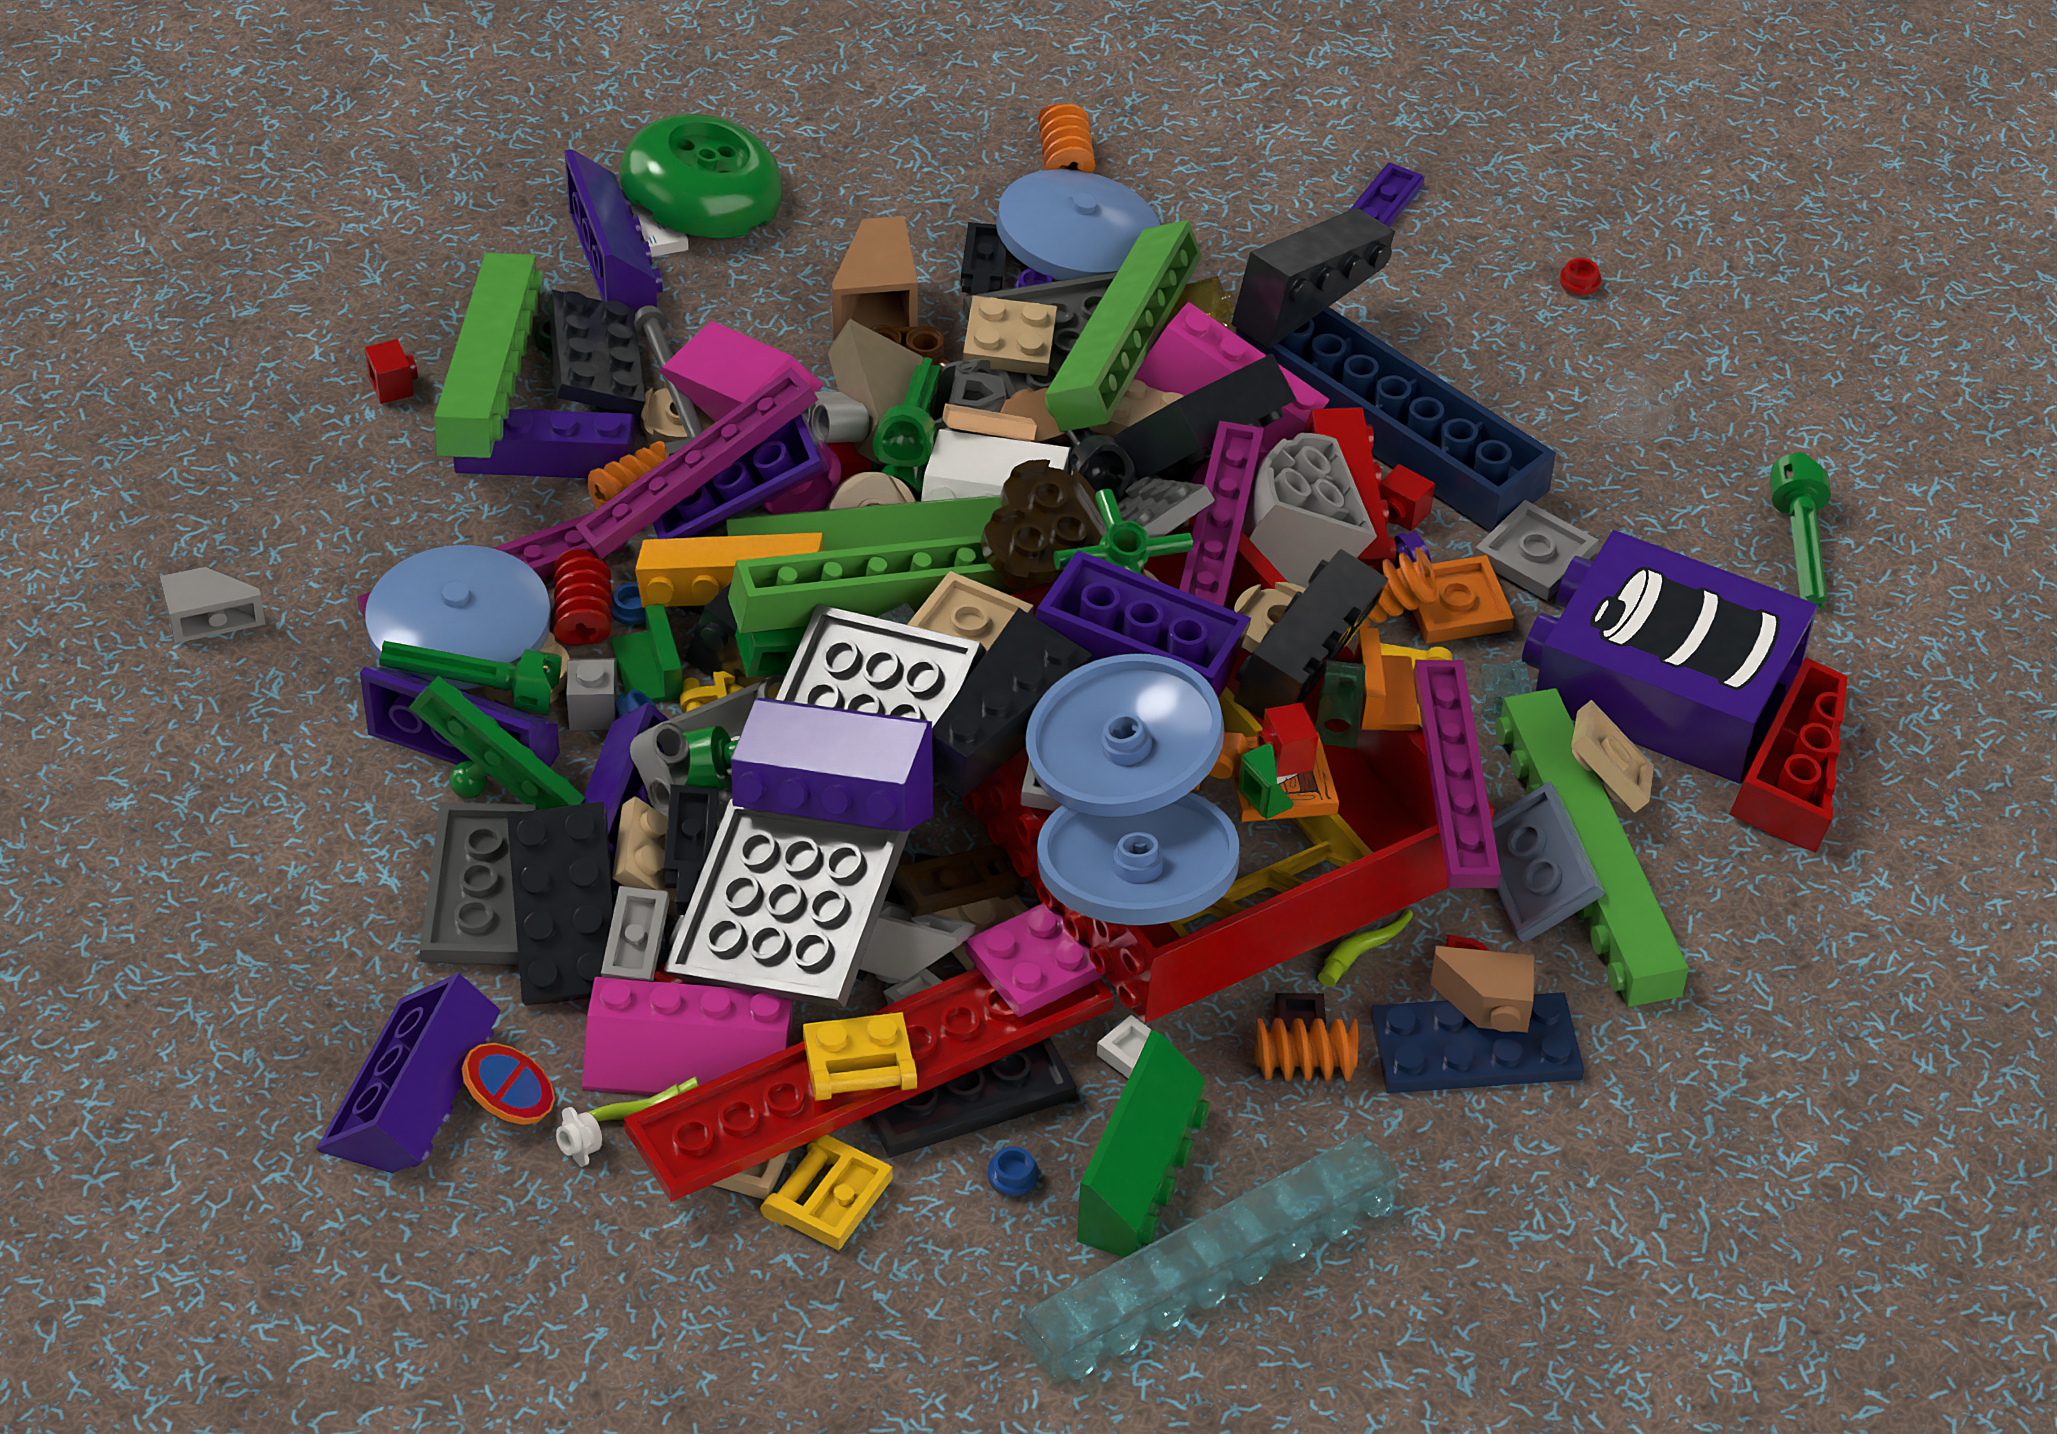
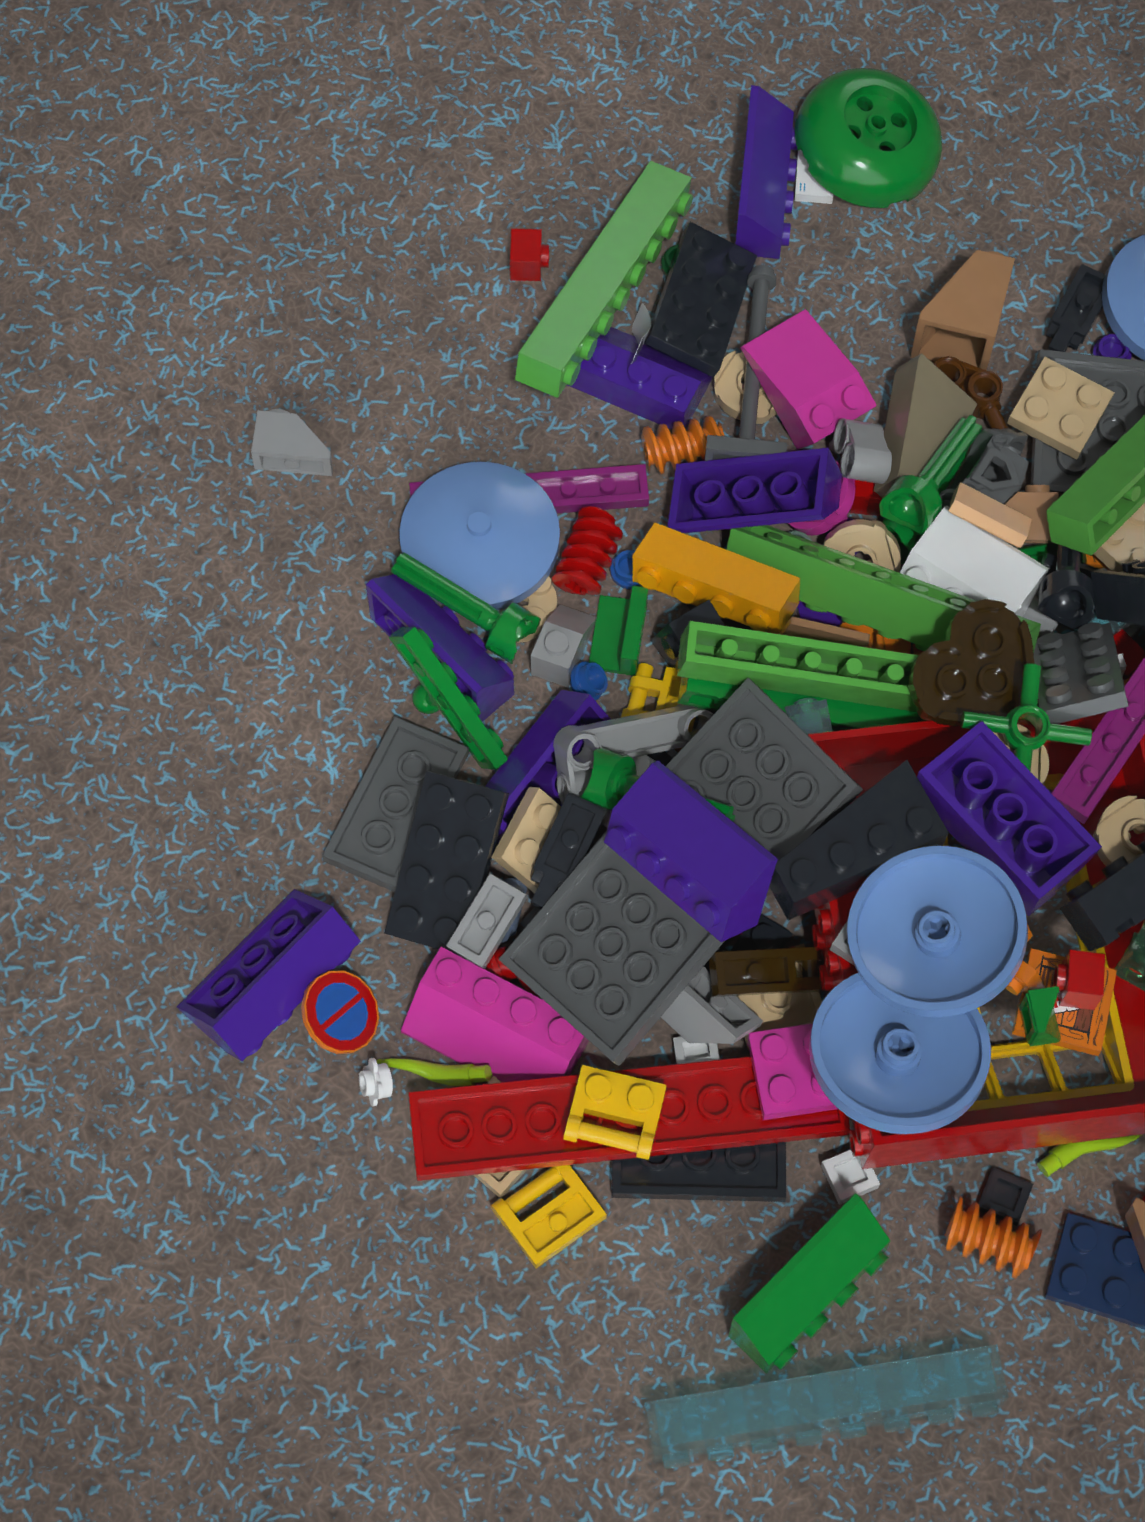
camera: 25 degrees right, 20 degrees up
(544, 393) = (641, 328): none -> white sticker
(696, 463) = (725, 467): magenta plate -> none
(967, 610) = (868, 740): tan plate -> none
(1013, 1171) = (703, 1253): blue plate -> none

